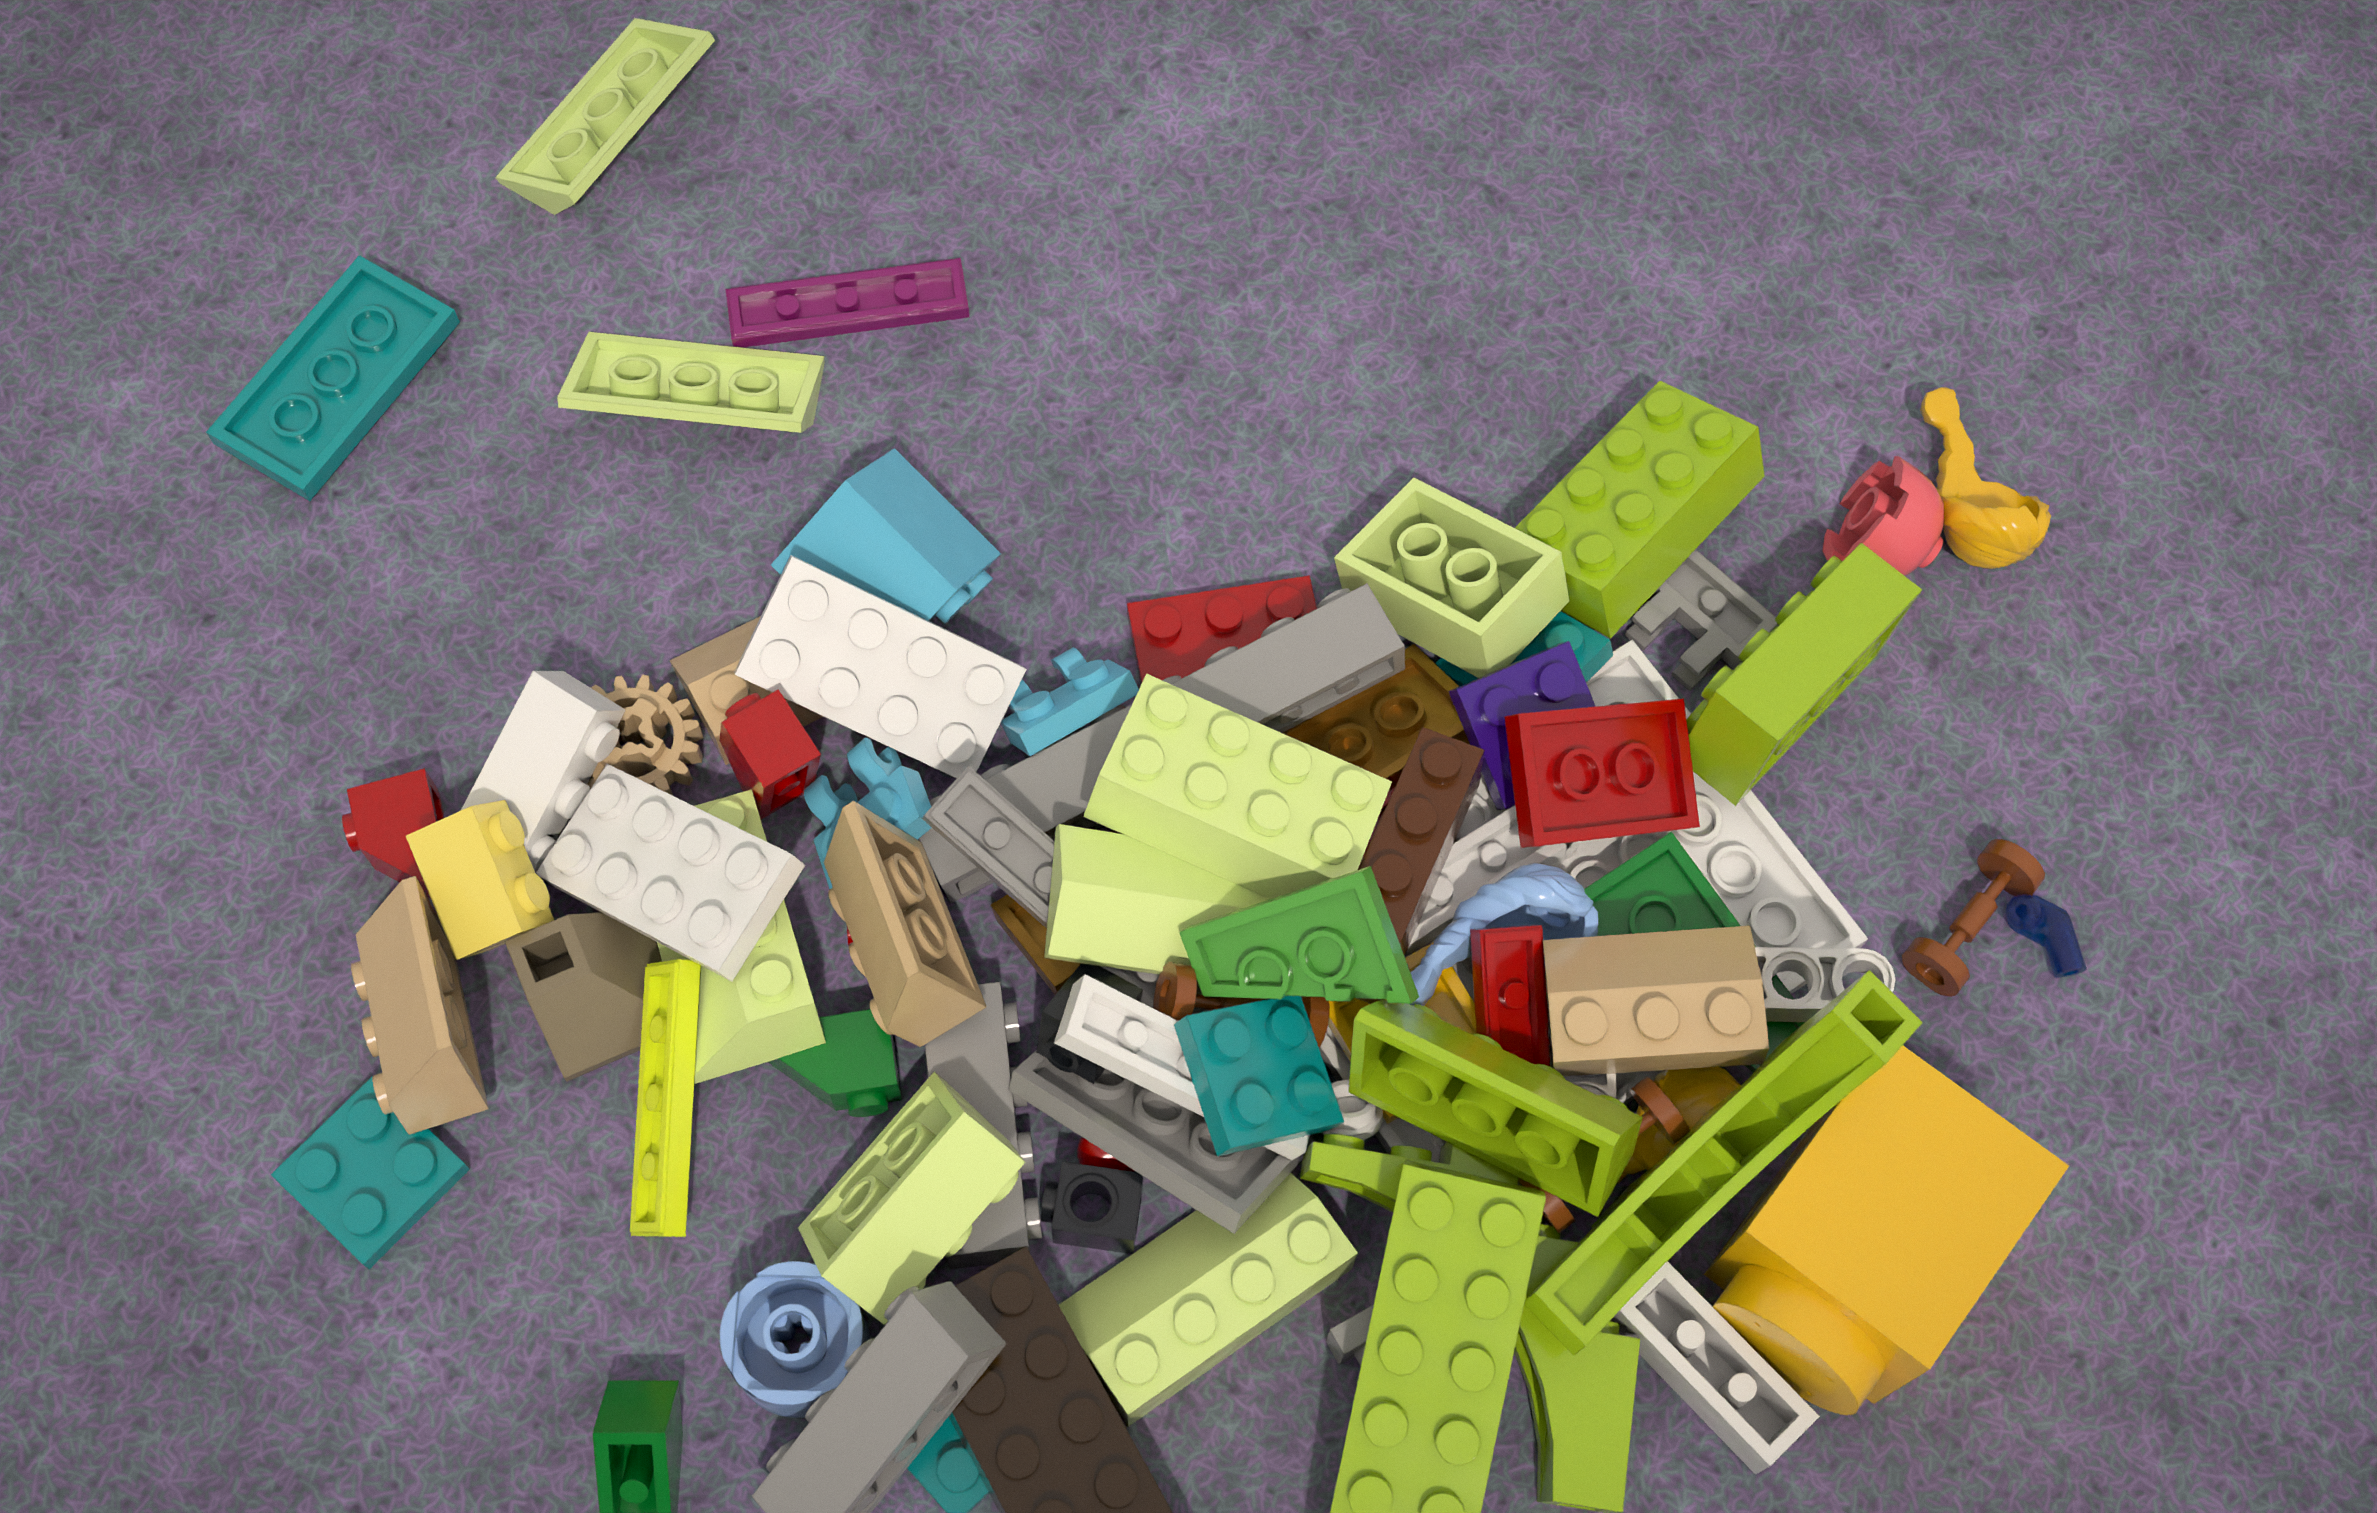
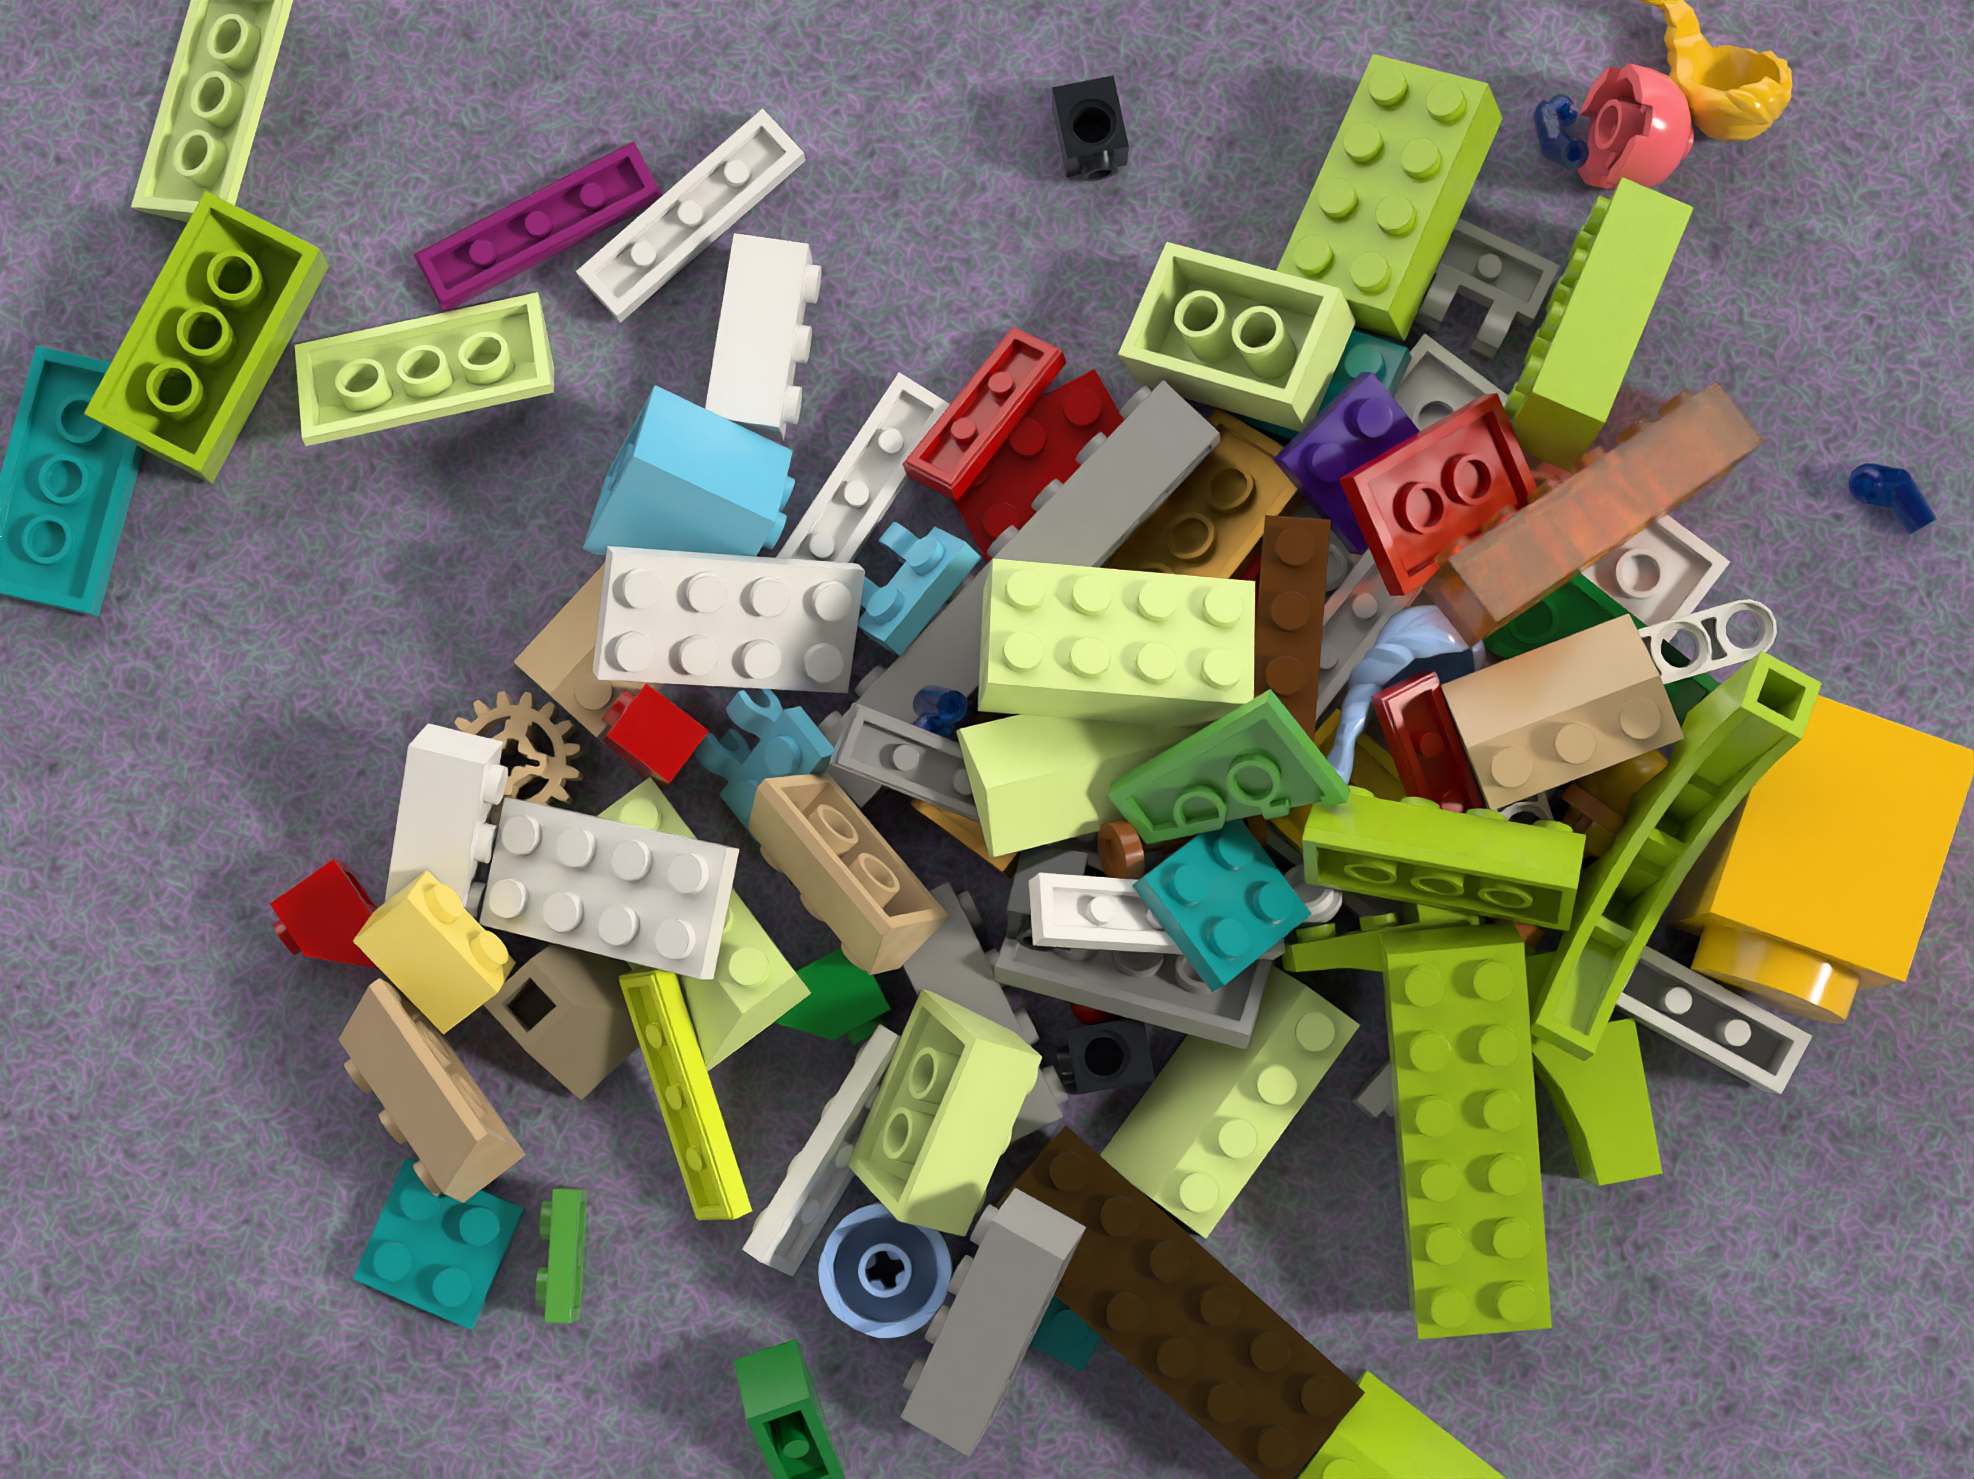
camera: 10 degrees left, 15 degrees up
(496, 1197) = (561, 1282): none -> bright green plate
(512, 292) = (208, 337): none -> lime slope
(768, 1224) = (821, 1170): none -> white plate
(986, 333) = (691, 215): none -> white plate
(1014, 447) = (763, 334): none -> white brick
(1047, 804) = (938, 709): none -> clear blue arm
(1069, 597) = (866, 476): none -> white plate
(1191, 579) = (984, 413): none -> red tile
(1380, 350) = (1085, 103): none -> black brick
(1740, 836) = (1591, 513): none -> clear orange brick
(1811, 508) = (1554, 142): none -> clear blue arm
(1937, 964) = (1842, 446): dark orange wheel -> none

